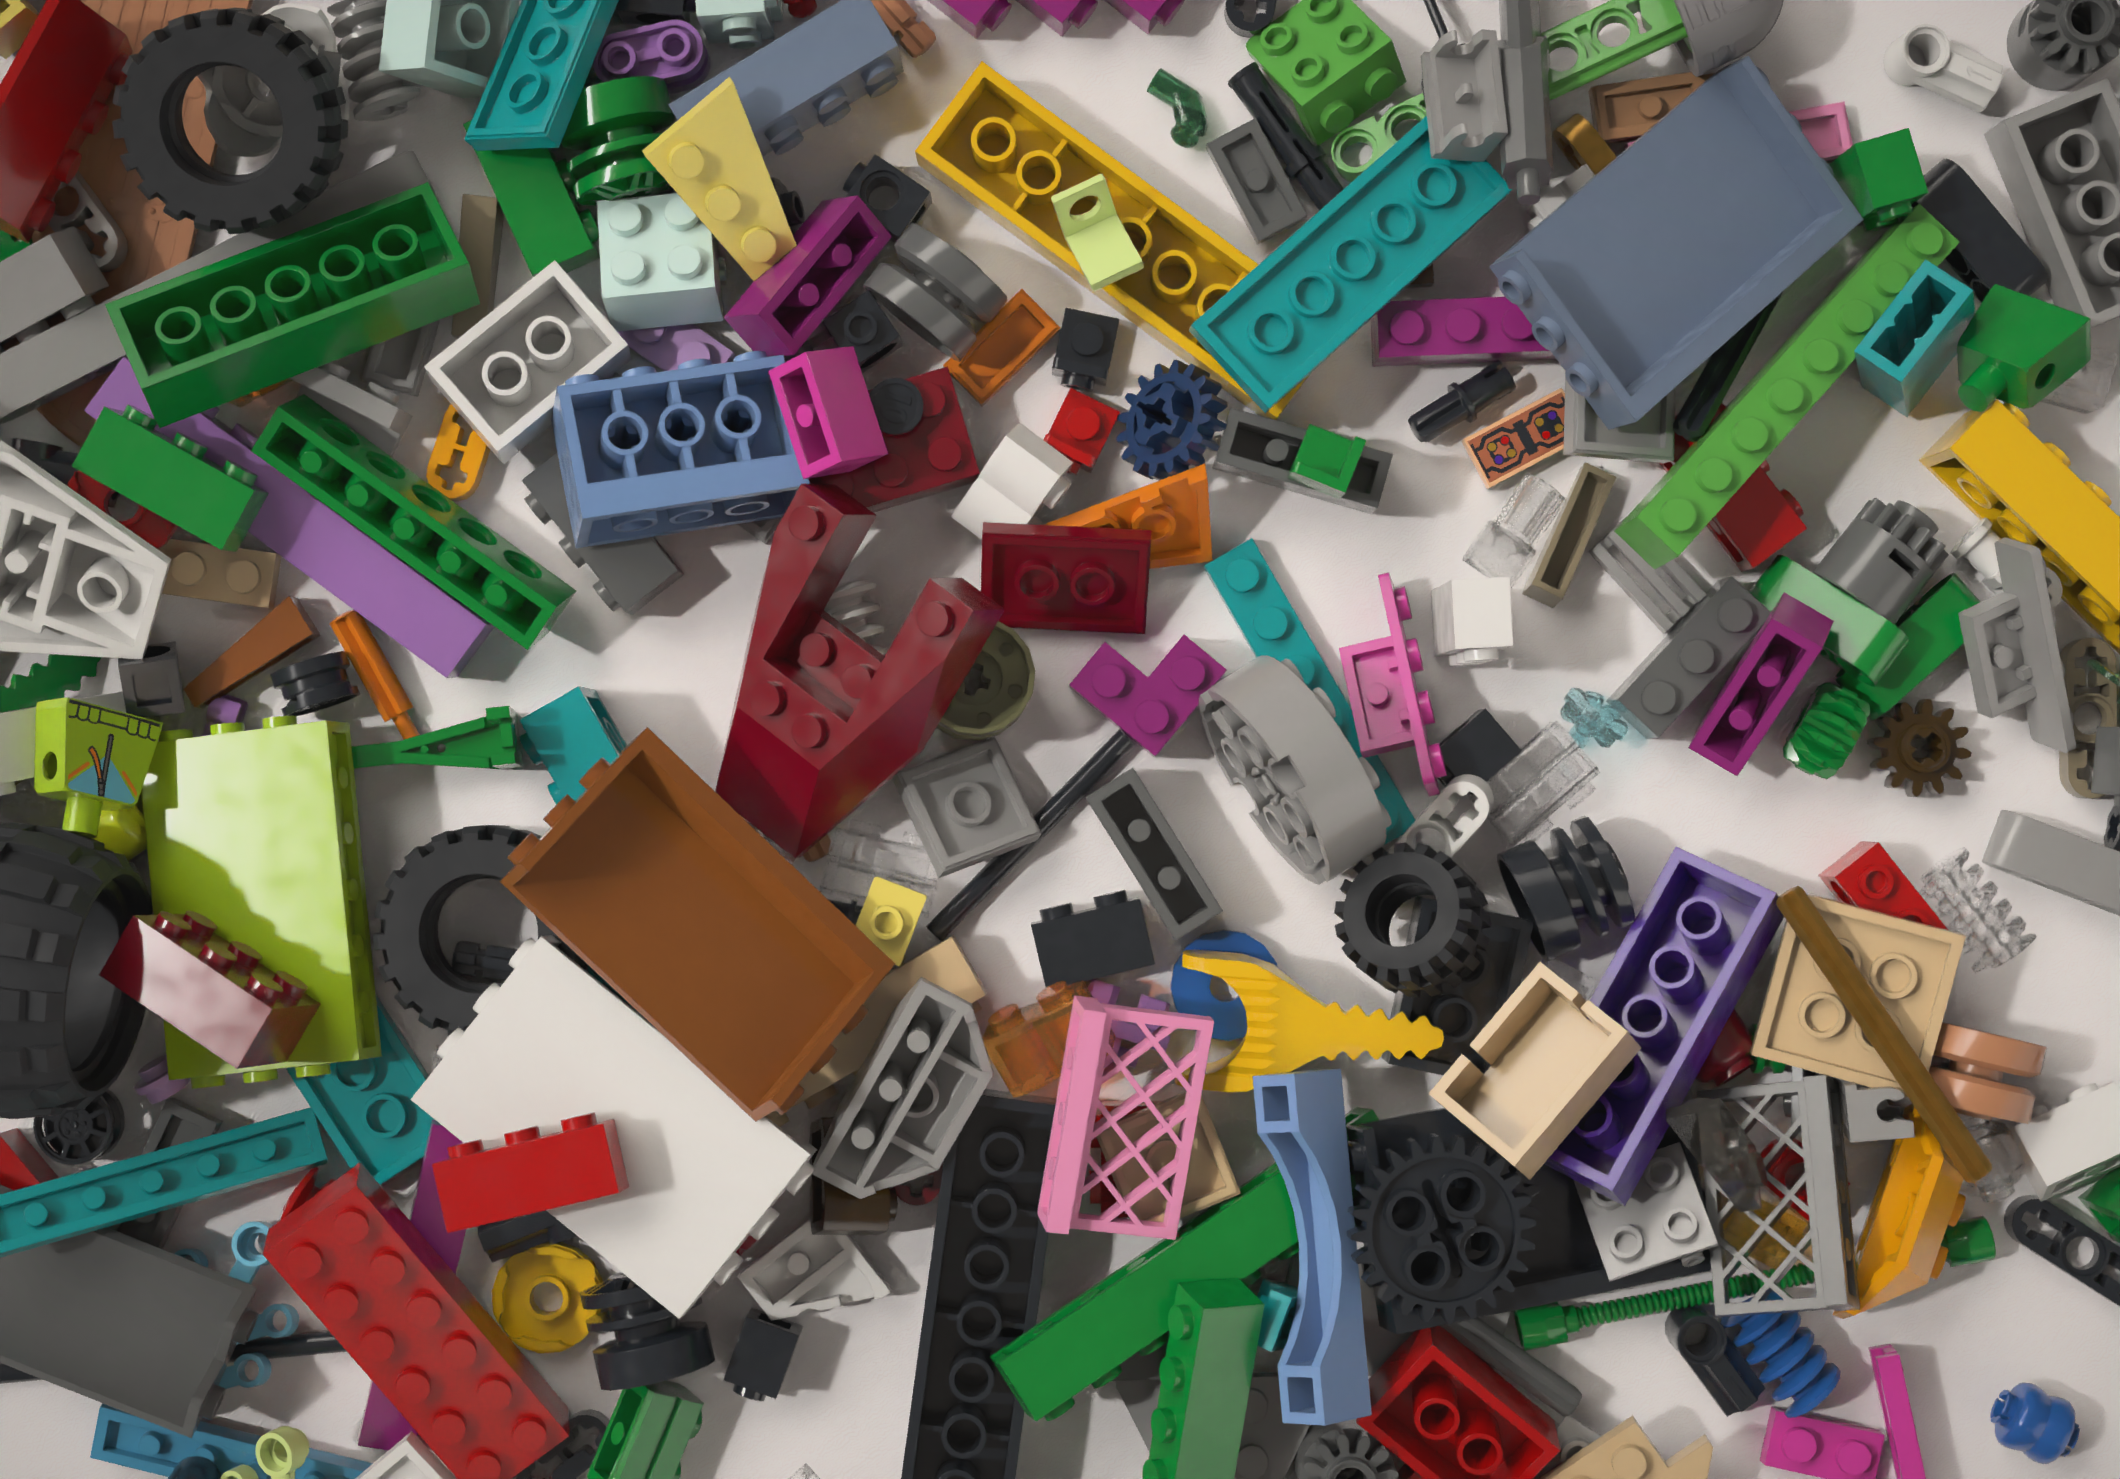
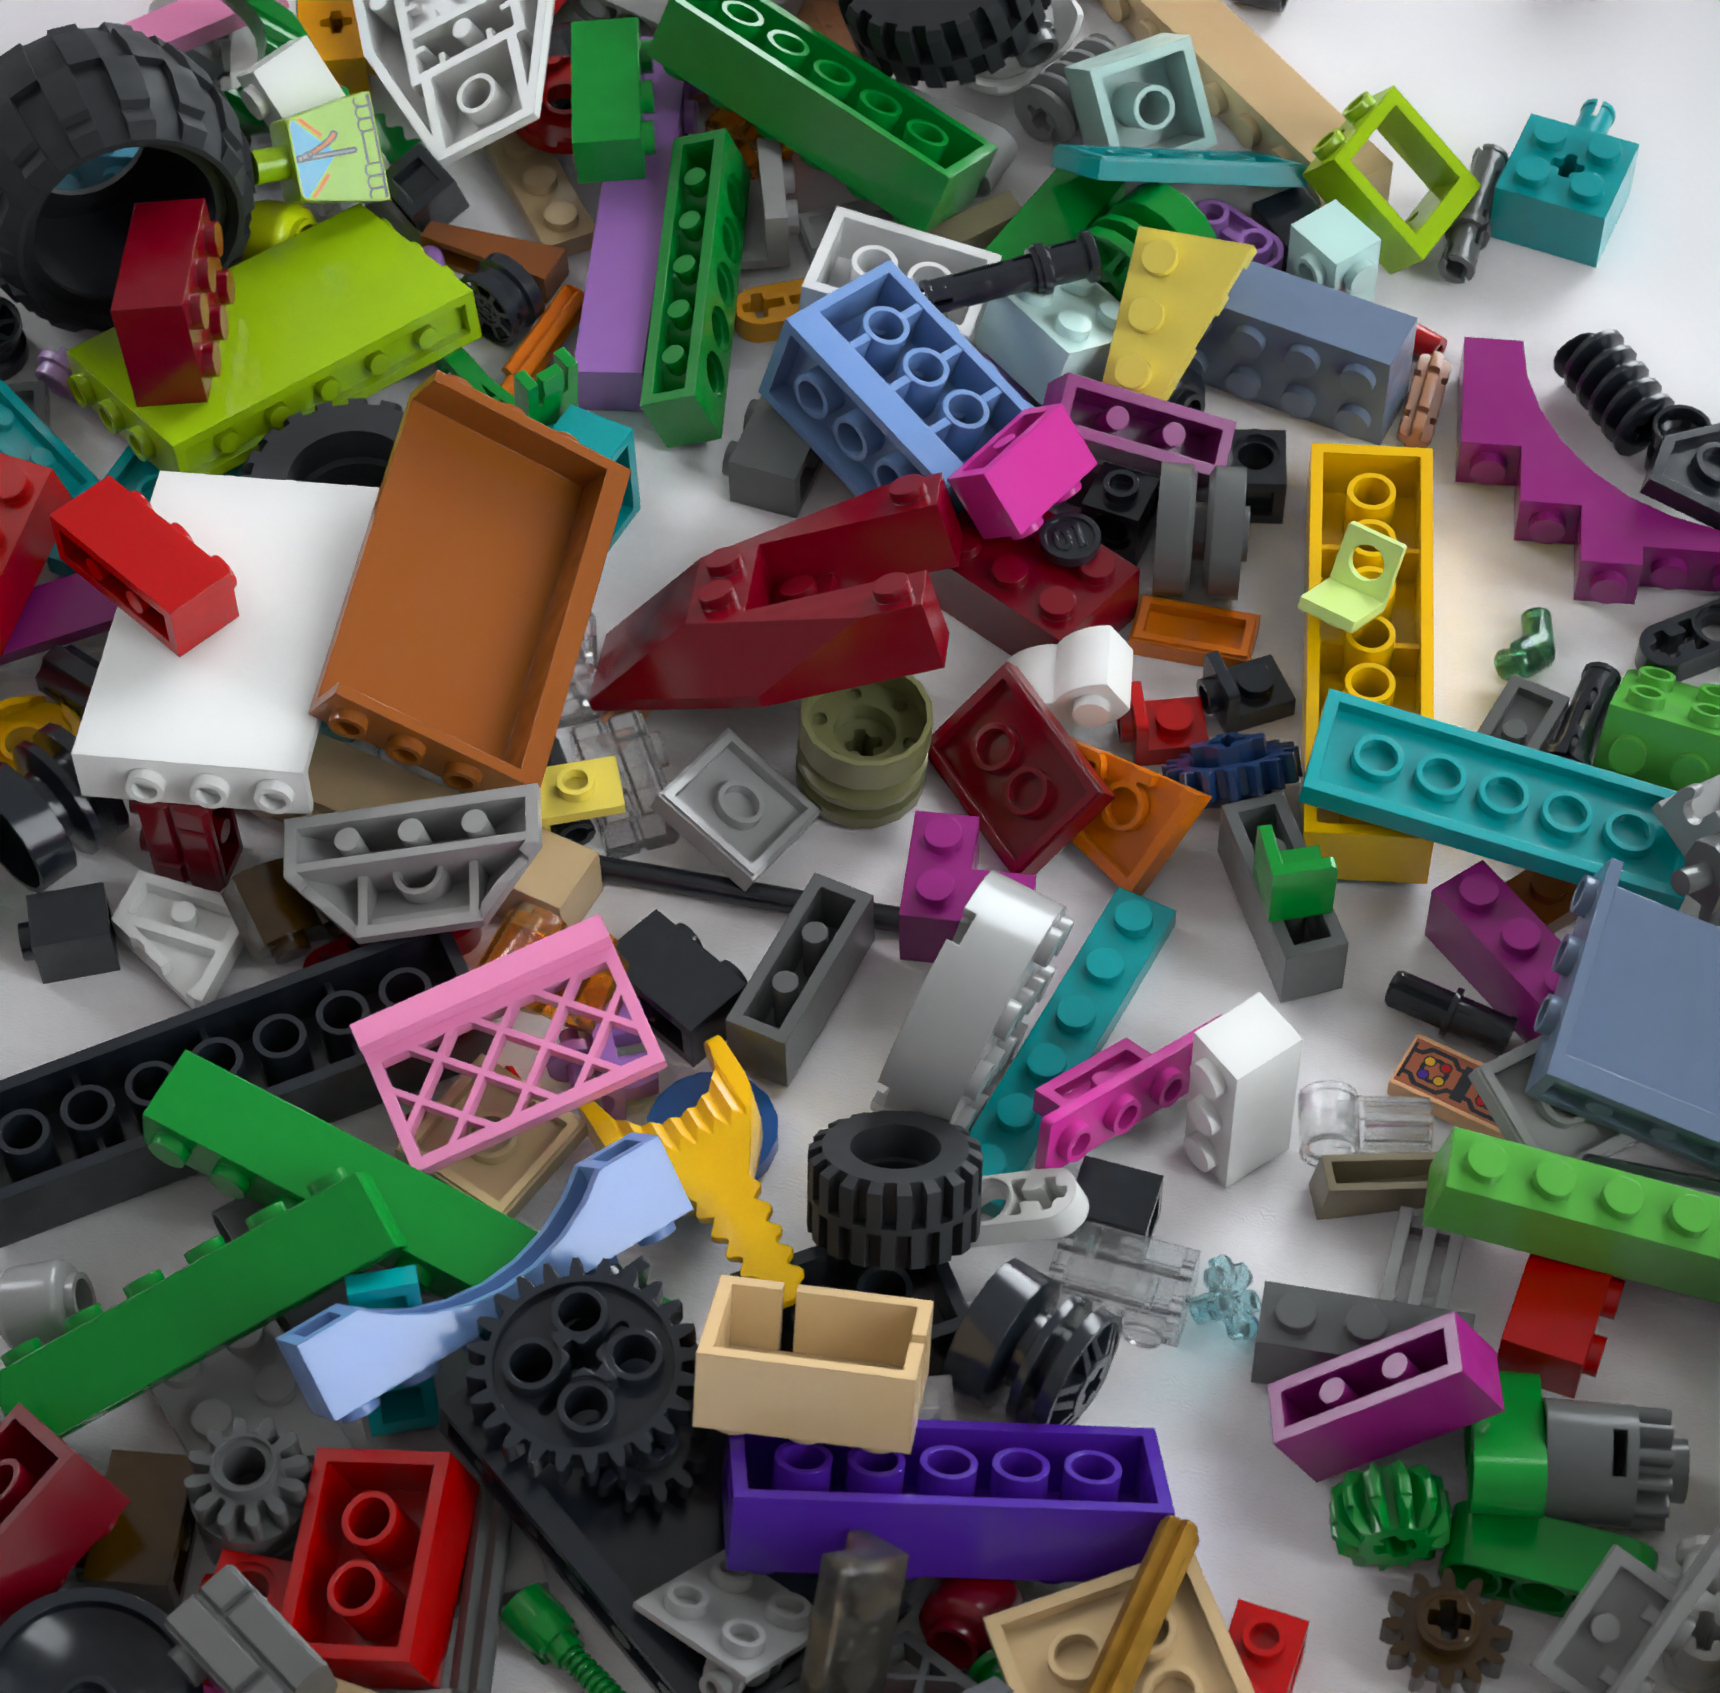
camera: 60 degrees right, 35 degrees down
(619, 259) = (1037, 269): none -> black pin

